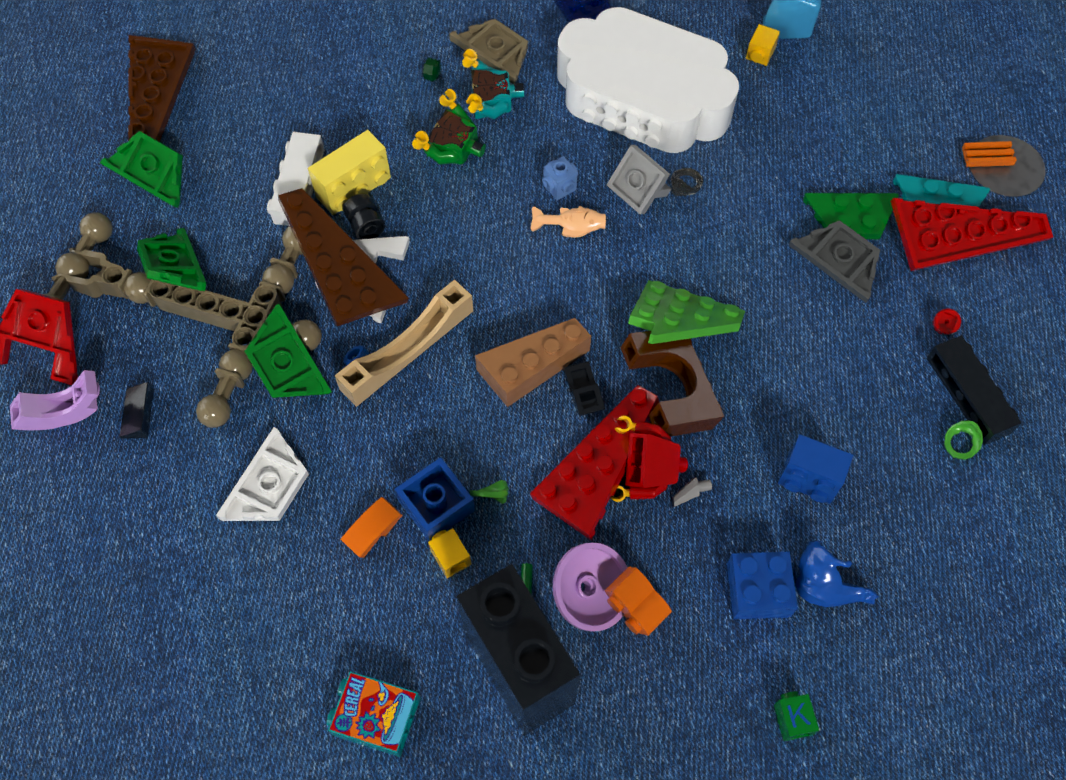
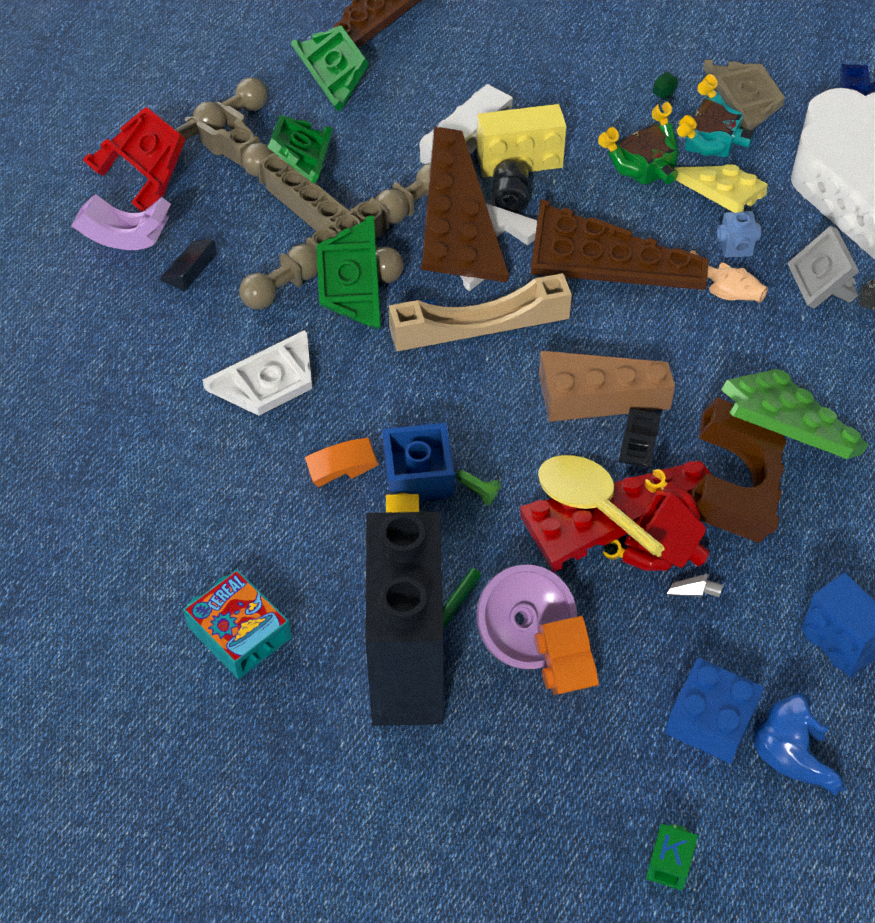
camera: 30 degrees right, 10 degrees down
(467, 241) = (609, 253): none -> reddish brown wing
(526, 140) = (724, 185): none -> light yellow wing
(571, 453) = (588, 485): none -> light yellow piece

